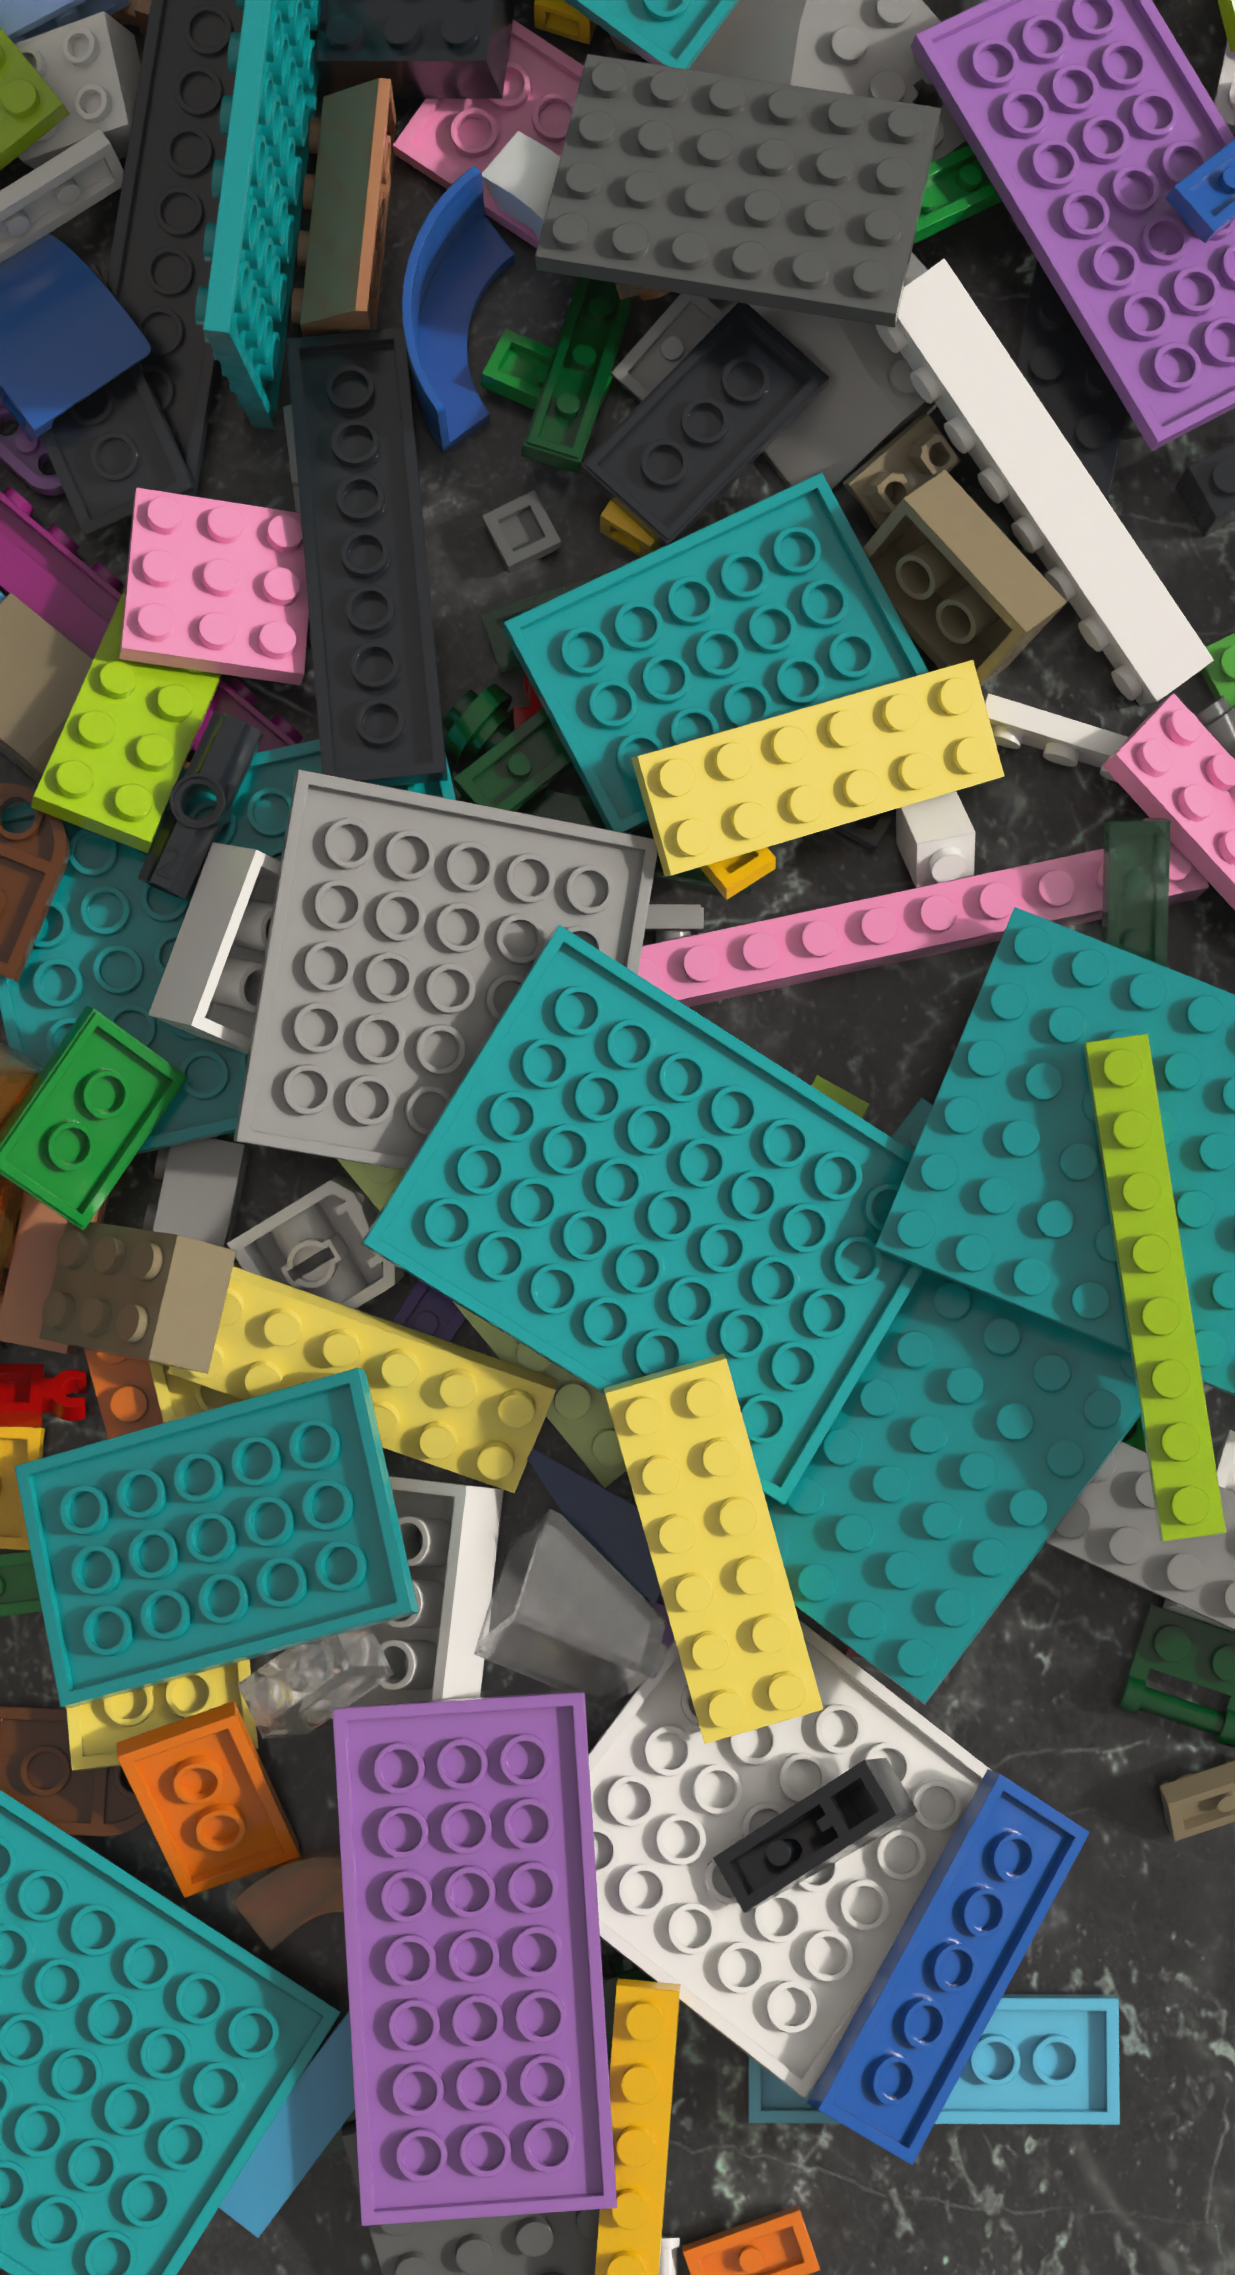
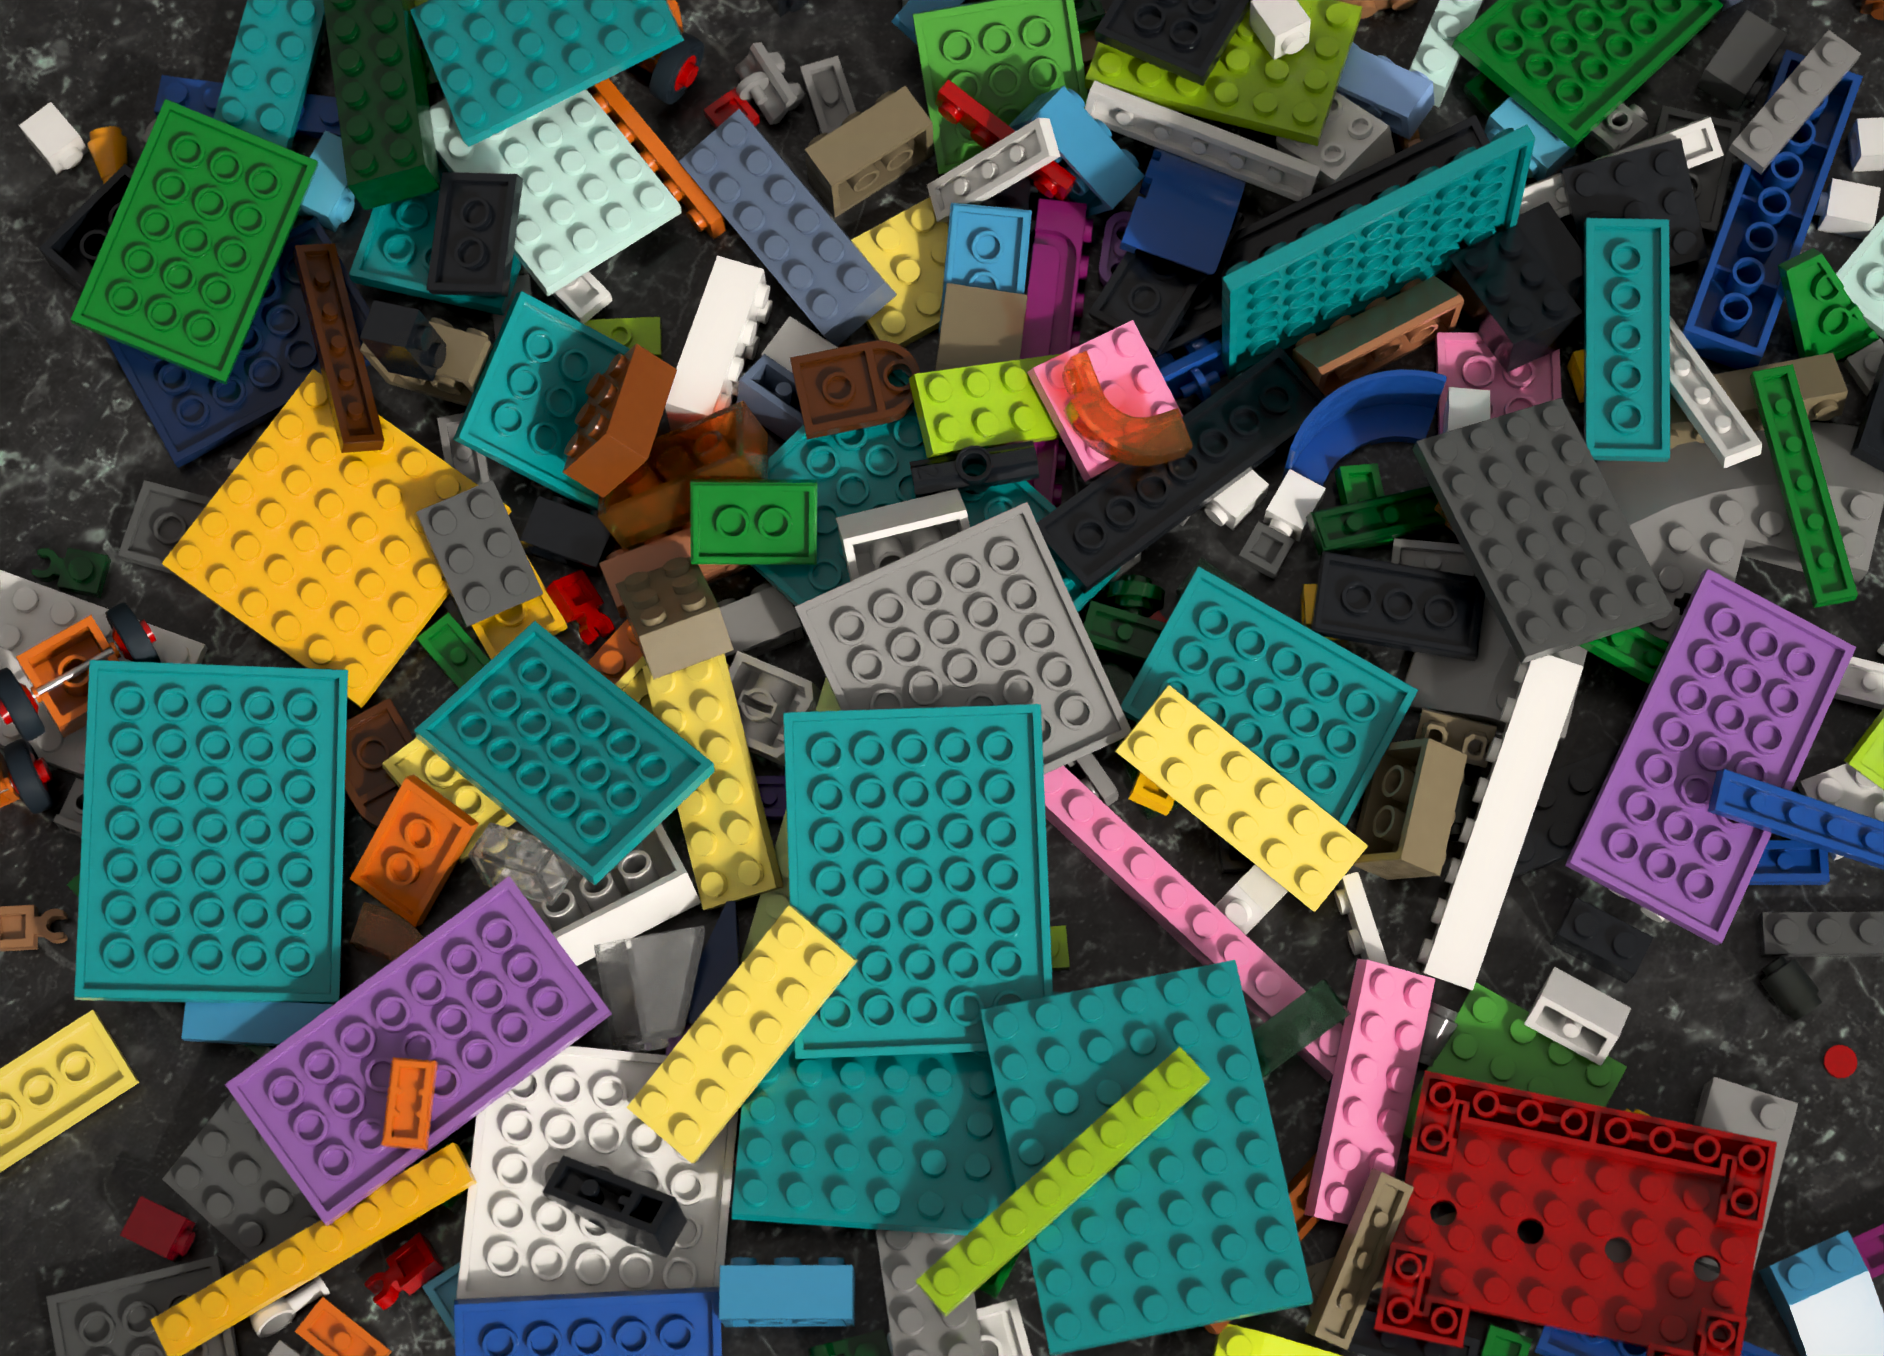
camera: 65 degrees right, 10 degrees down
(245, 460) = (1193, 372): none -> blue hips
(271, 607) = (1114, 433): none -> clear orange arch
(441, 521) = (1237, 501): none -> white brick
(490, 460) = (1292, 503): none -> white brick
(541, 2013) = (409, 1103): none -> orange plate
(718, 2124) = (408, 1271): none -> red plate
(1049, 1693) = (787, 1293): none -> dark azure brick

